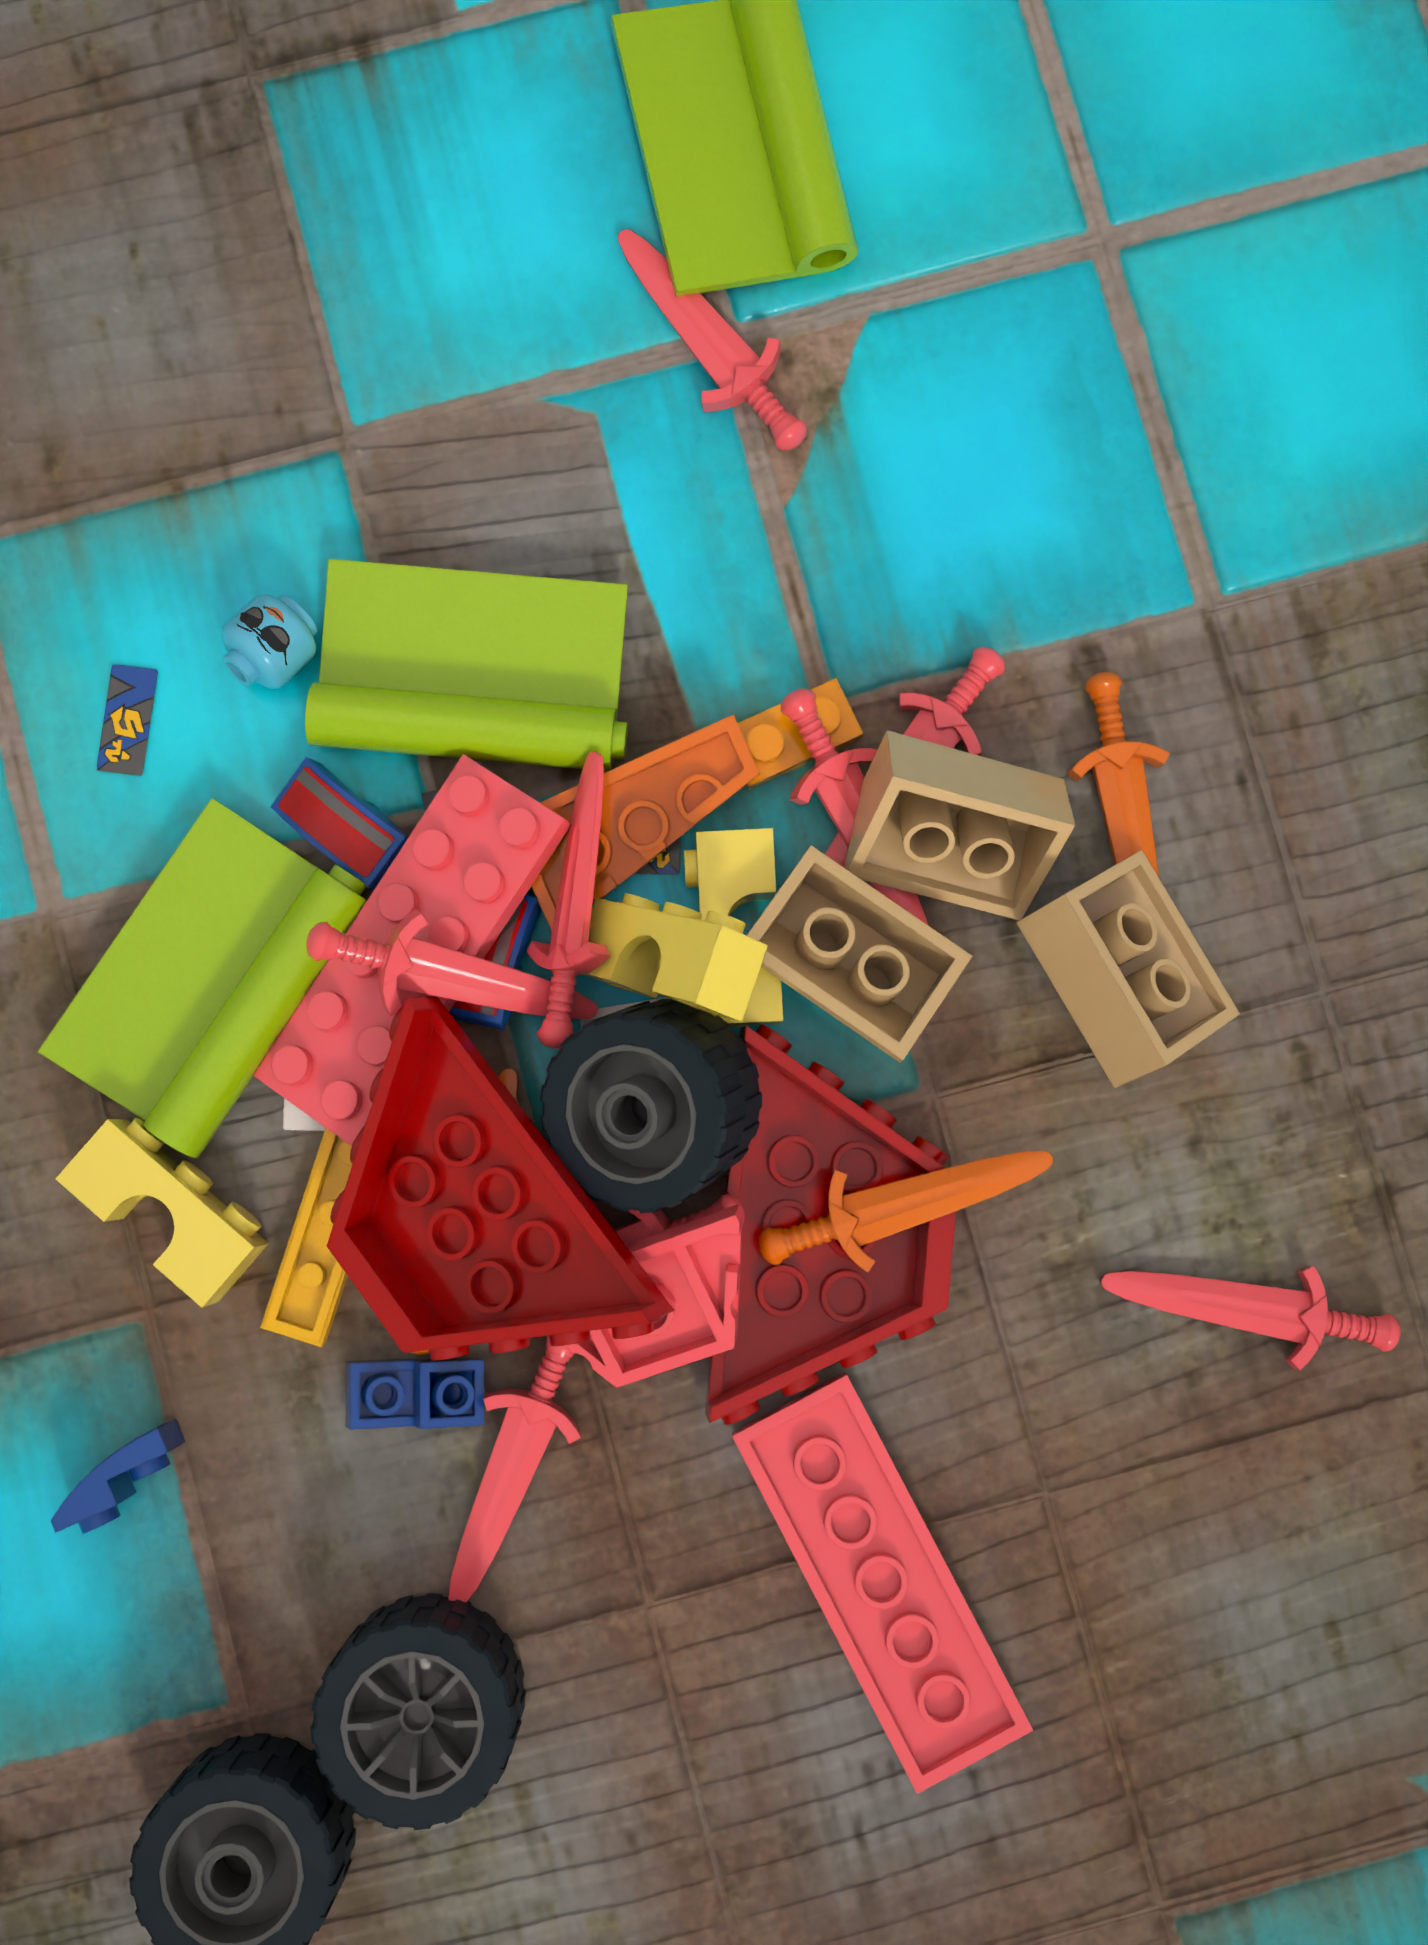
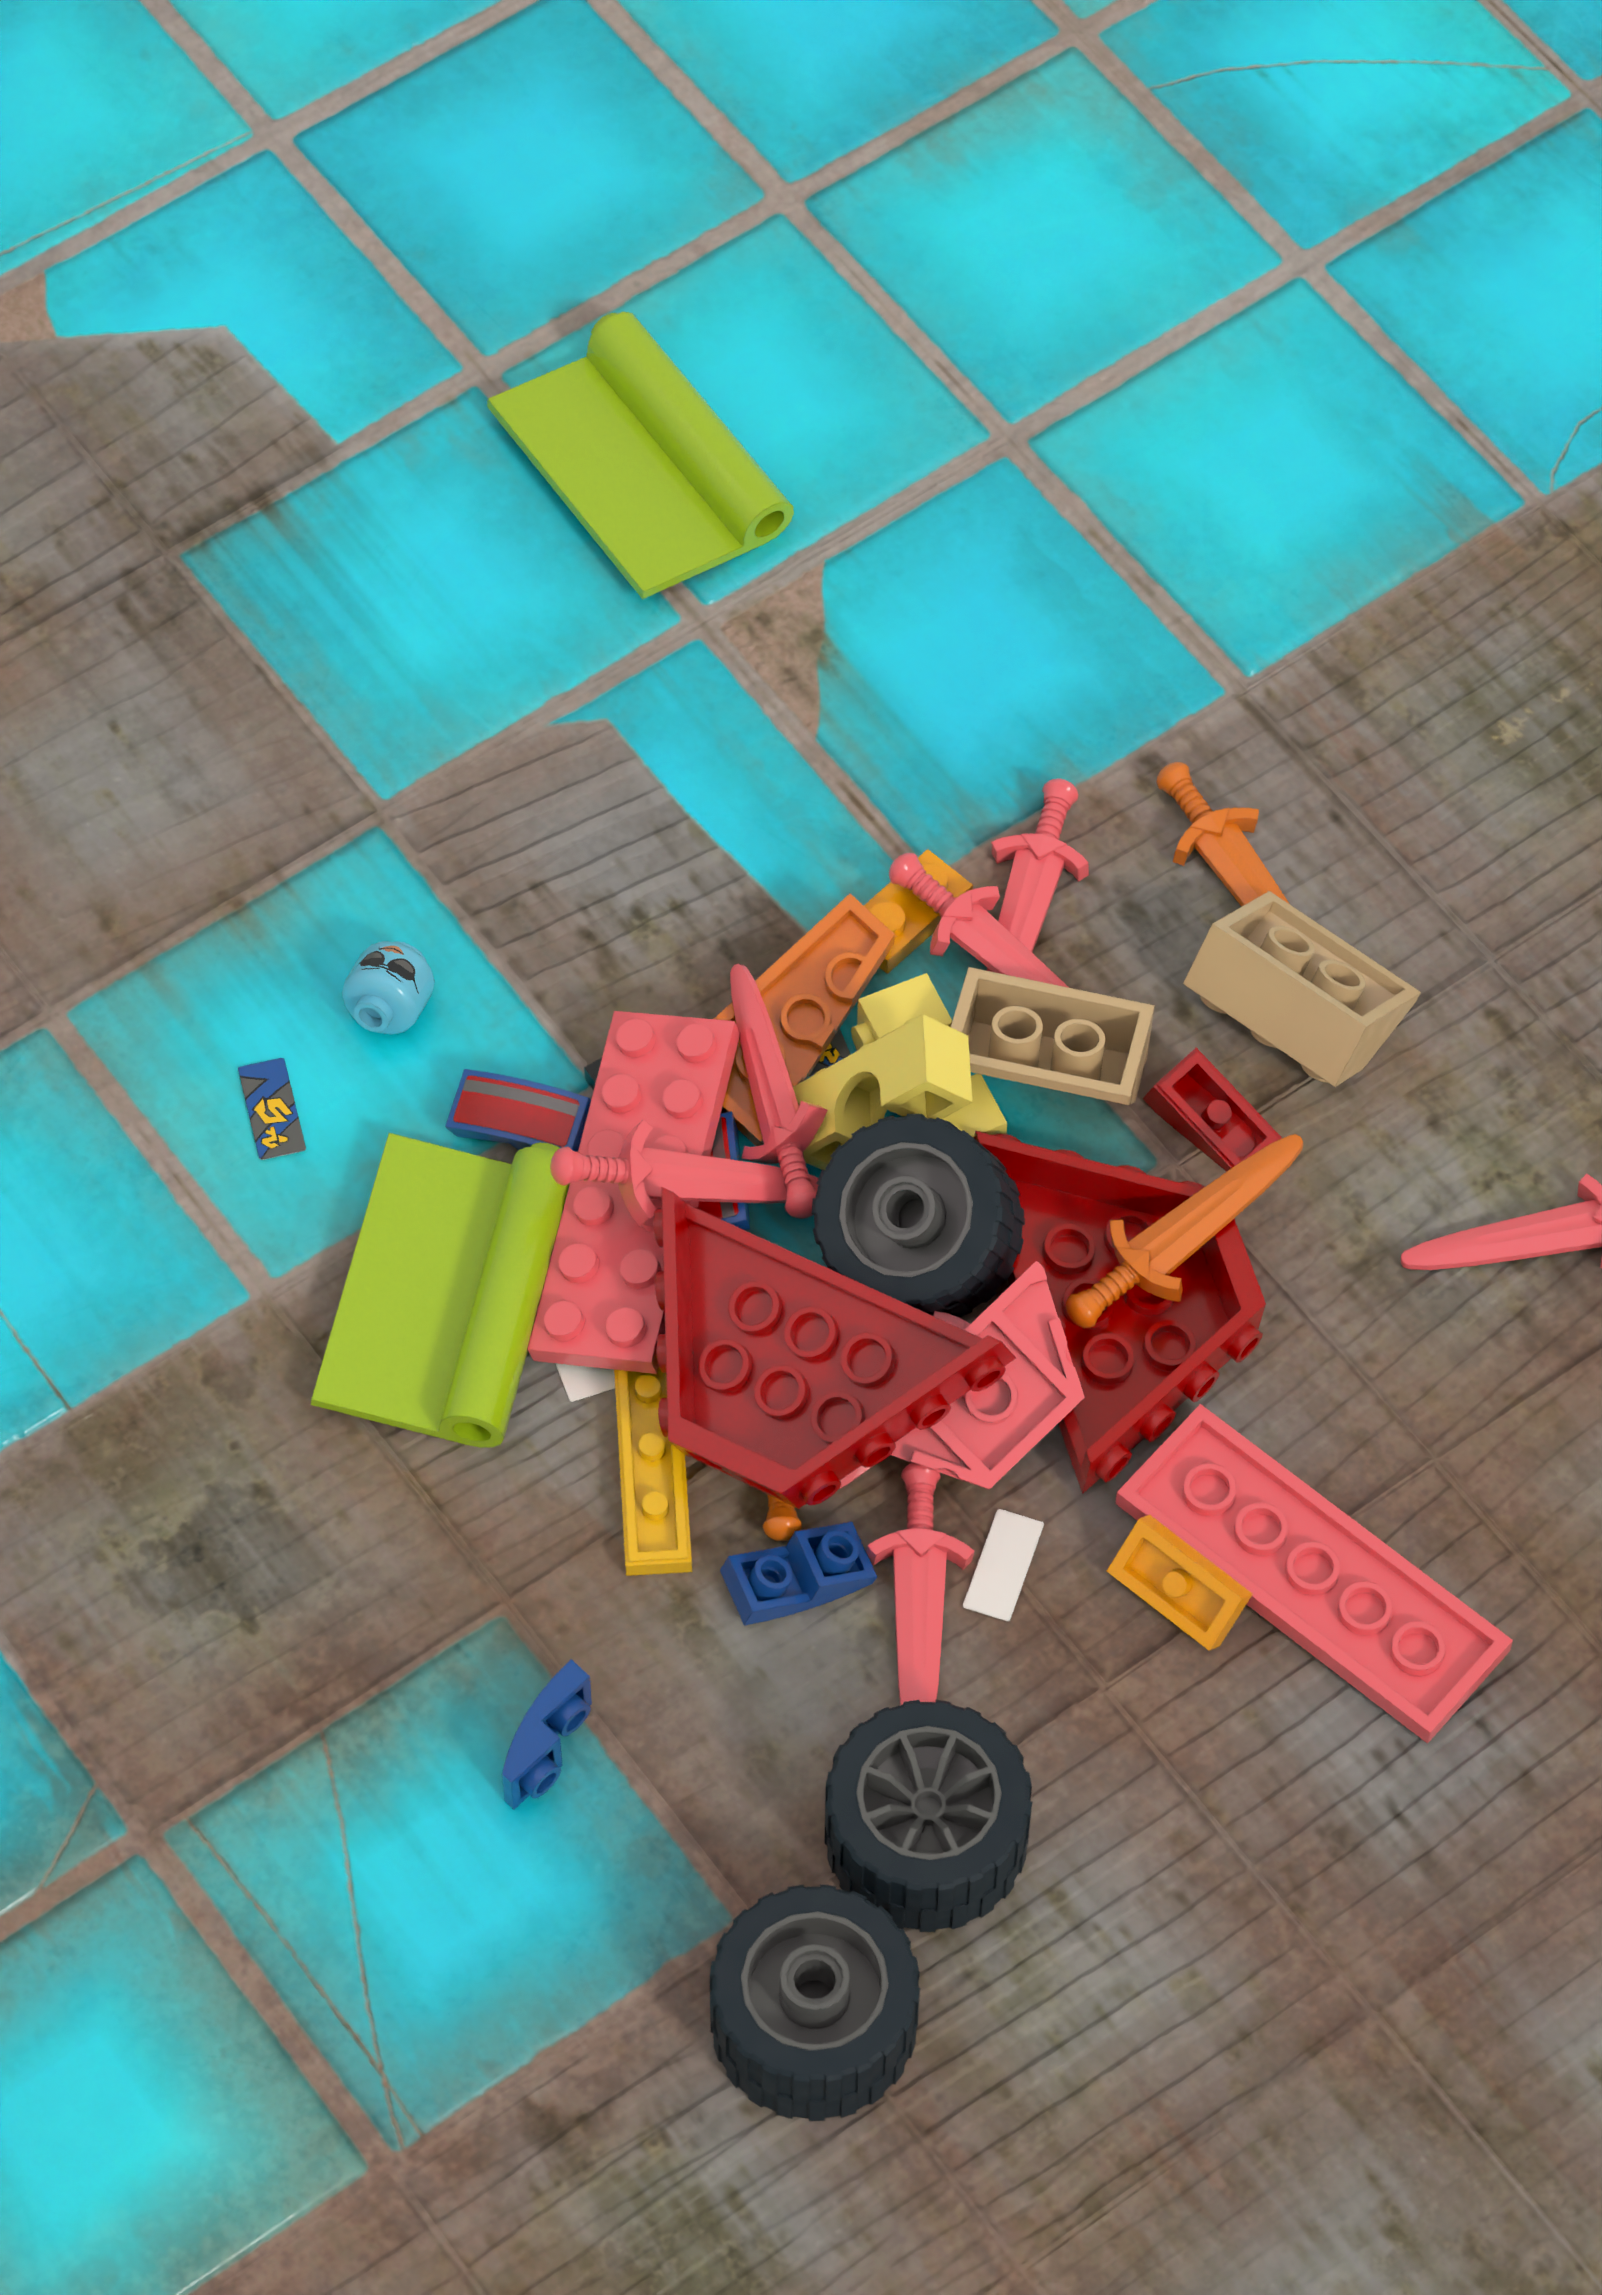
camera: 20 degrees left, 25 degrees down
(209, 1240) = (445, 1467): light yellow arch -> none
(469, 665) = (579, 942): lime door -> none
(607, 1448) = (1003, 1565): none -> white sticker
(715, 345) = (695, 626): coral sword -> none
(753, 1547) = (1179, 1582): none -> light orange plate
(957, 826) = (1095, 920): tan slope -> none
(988, 1062) = (1210, 1112): none -> red slope

